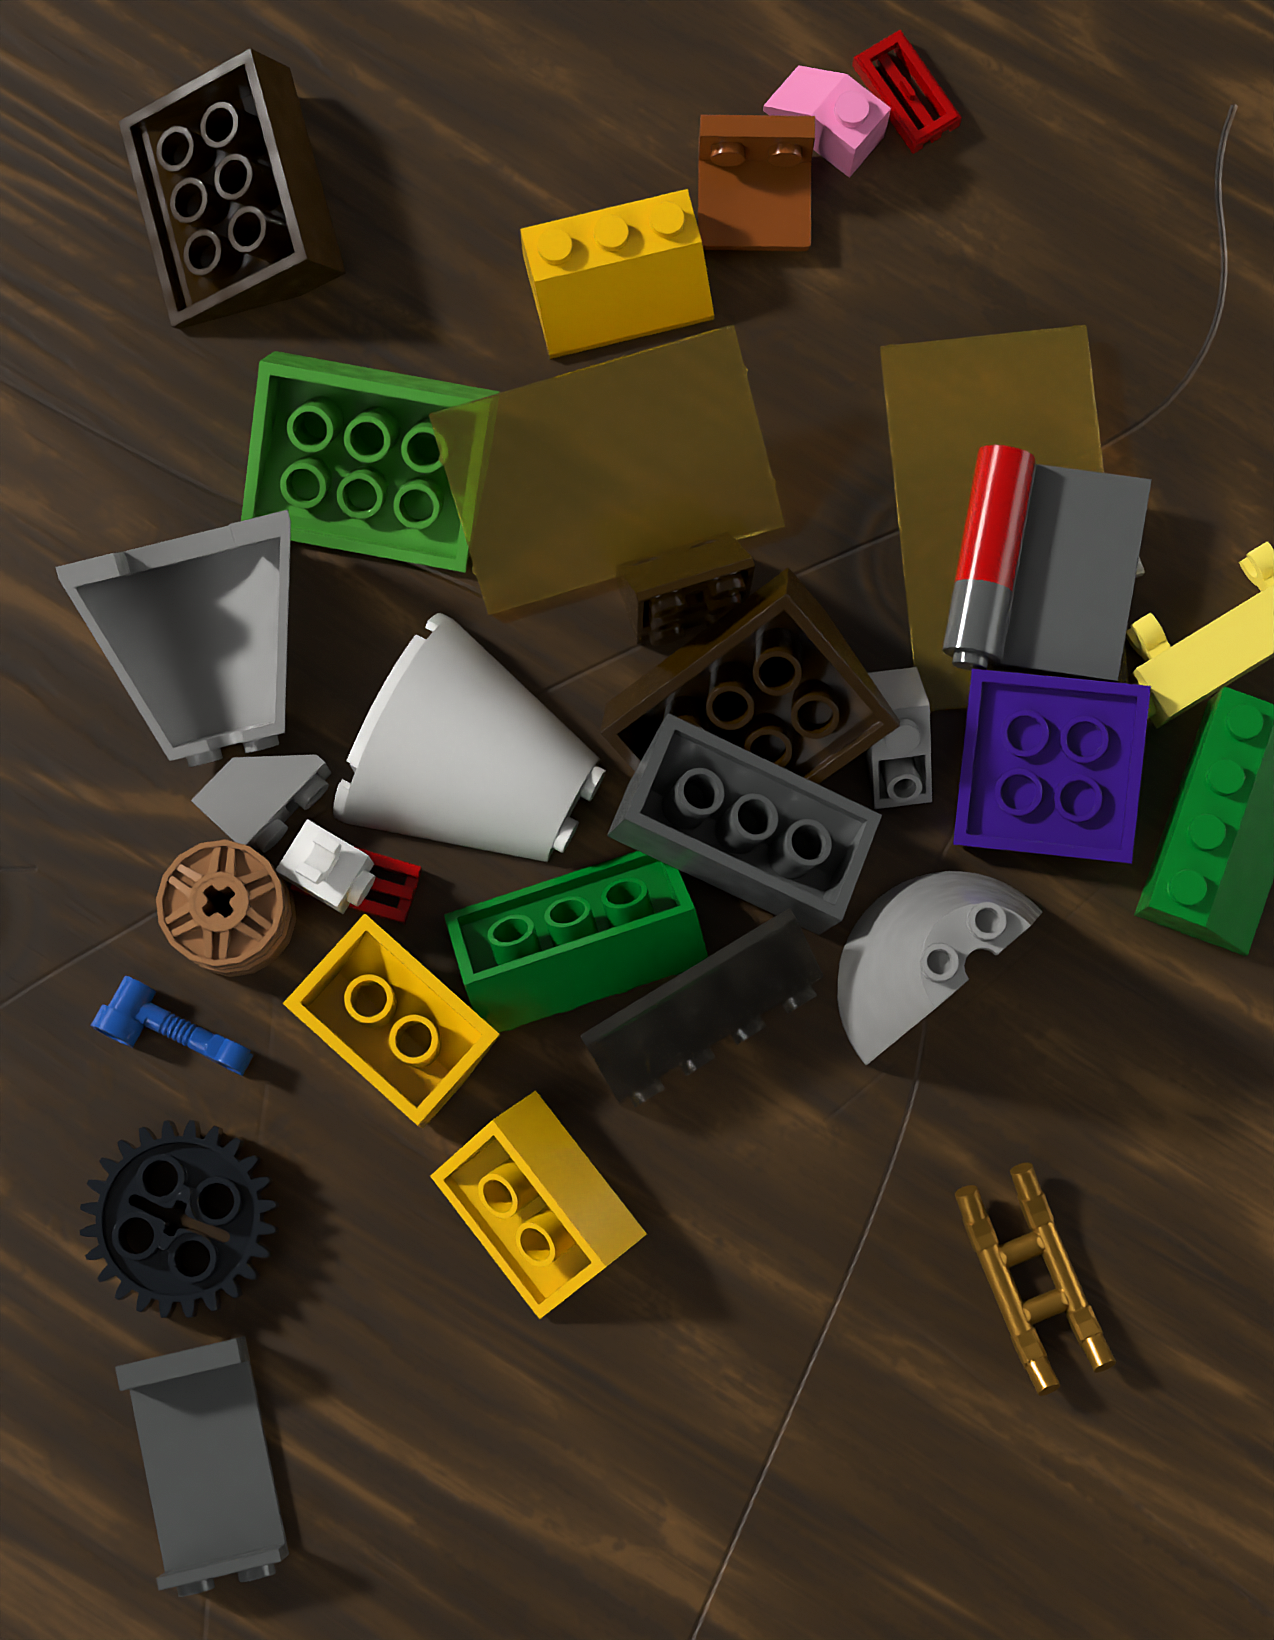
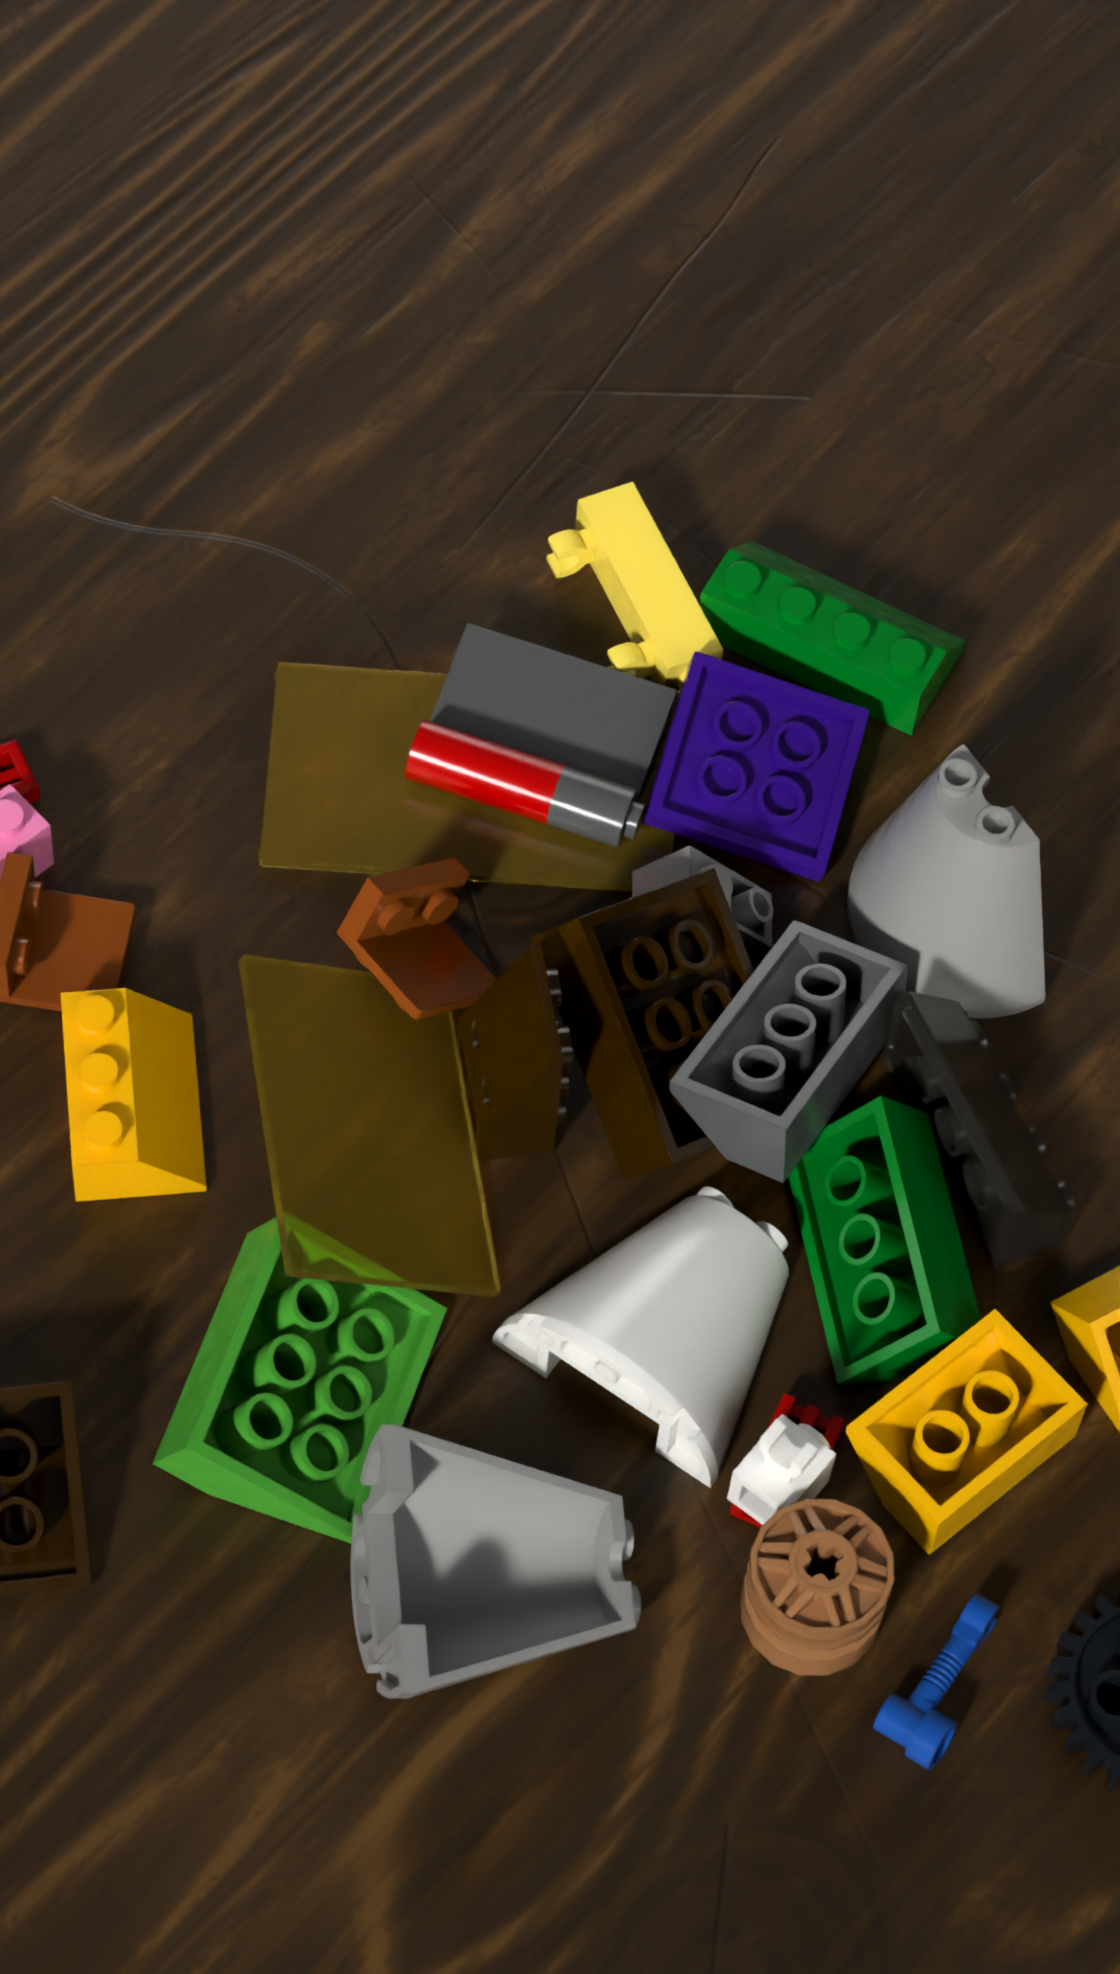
camera: 85 degrees left, 20 degrees down
(258, 794) = (686, 1553): light grey slope -> none
(798, 489) = (407, 945): none -> dark orange bracket

